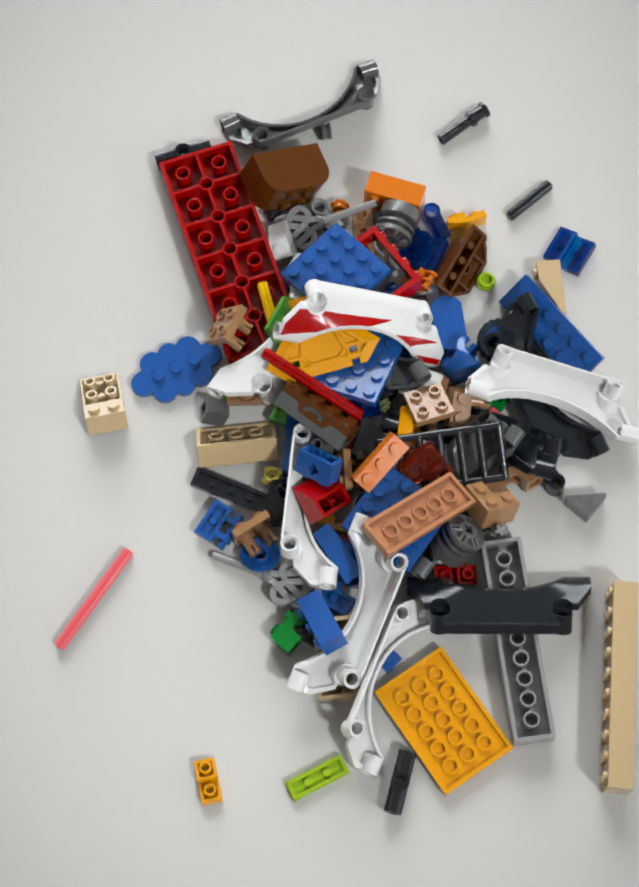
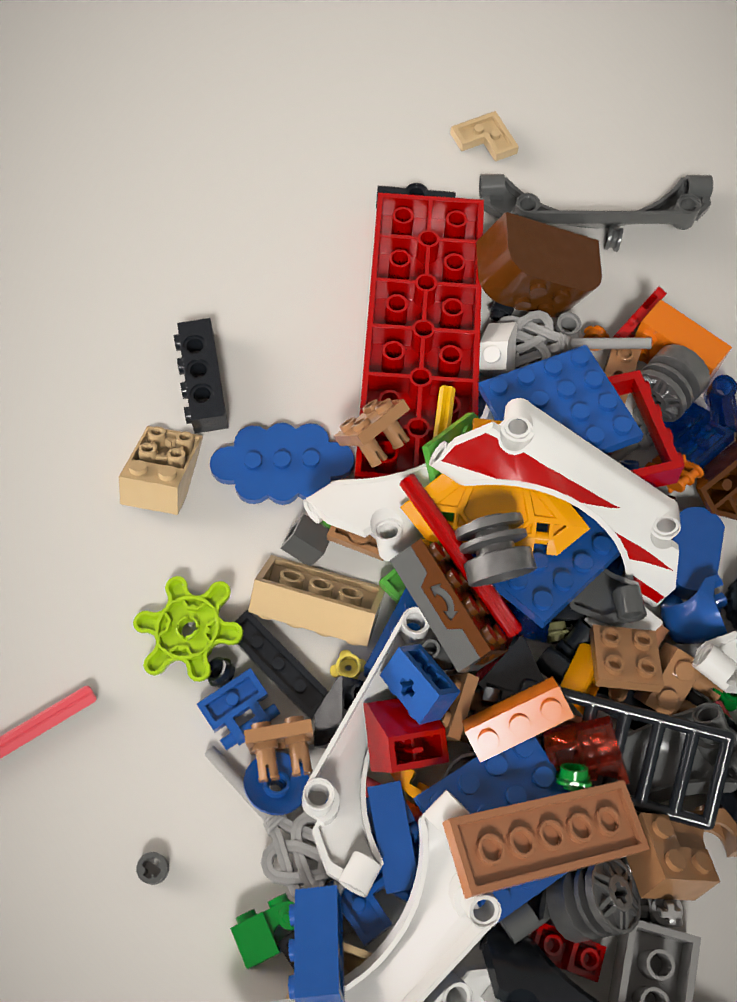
camera: 20 degrees right, 5 degrees down
(86, 308) = (212, 413): none -> black brick
(159, 482) = (179, 611): none -> lime plate
(198, 508) = (221, 671): none -> black plate
(210, 81) = (488, 131): none -> tan plate
(216, 625) = (142, 871): none -> dark grey bush
(331, 373) = (494, 543): none -> flat silver wheel
(358, 196) = (635, 320): none -> red wing
(422, 480) = (573, 776): none -> green plate

